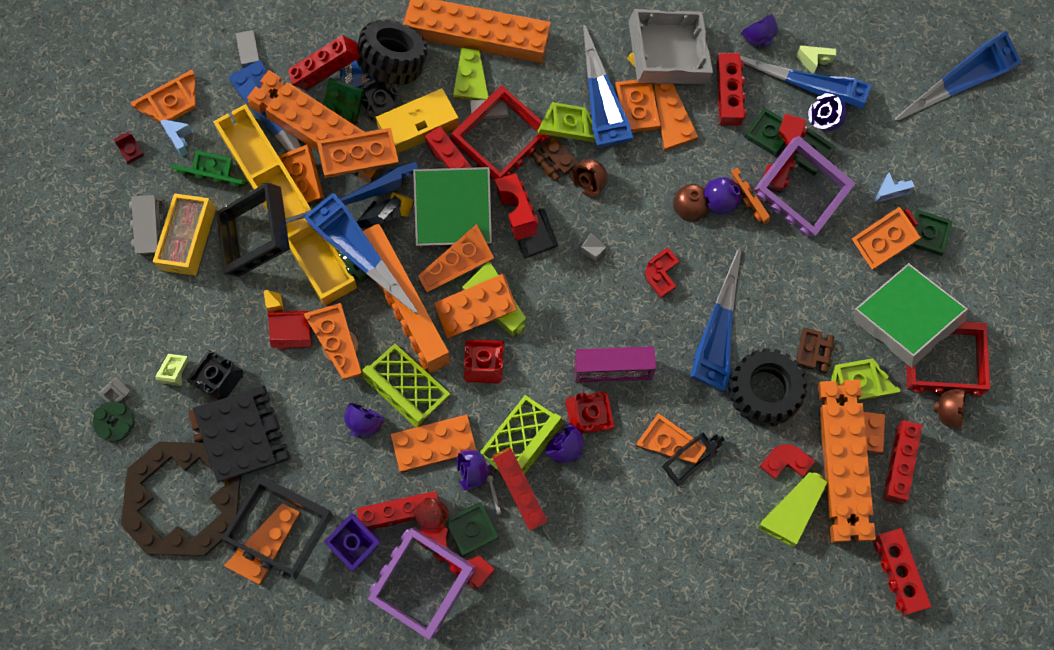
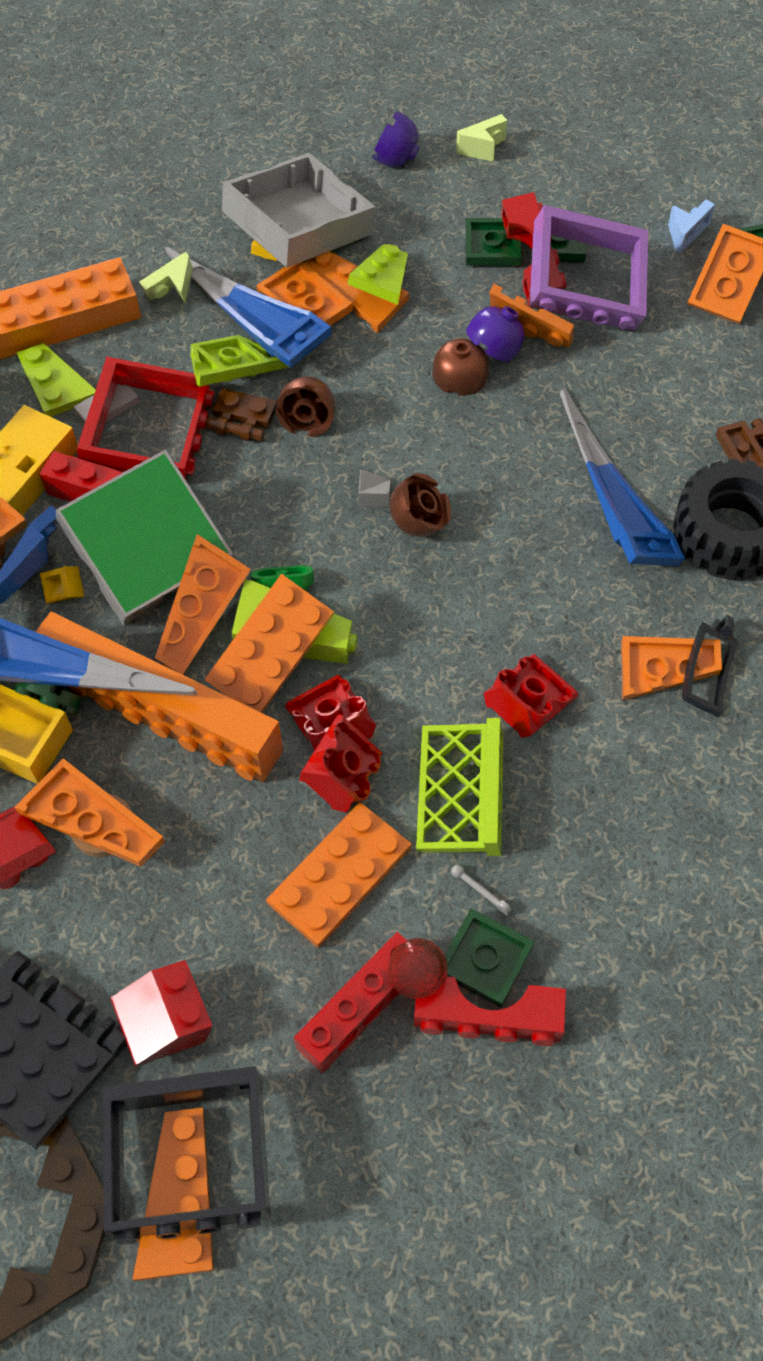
camera: 30 degrees left, 10 degrees down
(307, 457) = (162, 1013): none -> slope
(352, 542) = (324, 1092): dark purple slope -> none
(362, 421) = (210, 906): dark purple cylinder -> none
(380, 212) = (47, 598): black slope -> none
(391, 393) = (233, 840): lime fence -> none
(450, 599) = (536, 1078): medium lavender window -> none
(469, 391) = (342, 765): none -> red slope
(473, 469) = (422, 864): dark purple cylinder -> none
(511, 270) = (299, 574): none -> green plate
(519, 488) = (493, 831): red arch -> none
(521, 219) = (257, 493): red arch -> none
(542, 241) = (279, 516): black slope -> none
(567, 446) = (534, 753): dark purple cylinder -> none
(575, 50) = (173, 274): none -> yellowish green slope
(606, 275) = (419, 506): none -> copper cylinder
(614, 364) = (518, 607): magenta brick -> none
(656, 272) = (481, 471): red plate -> none
(689, 116) = (381, 273): none -> lime wing
(727, 114) = (409, 222): red brick -> none
(827, 113) = (550, 179): dark purple cylinder -> none
(847, 89) = (532, 159): blue plate -> none
(986, 62) = (680, 49): blue plate -> none

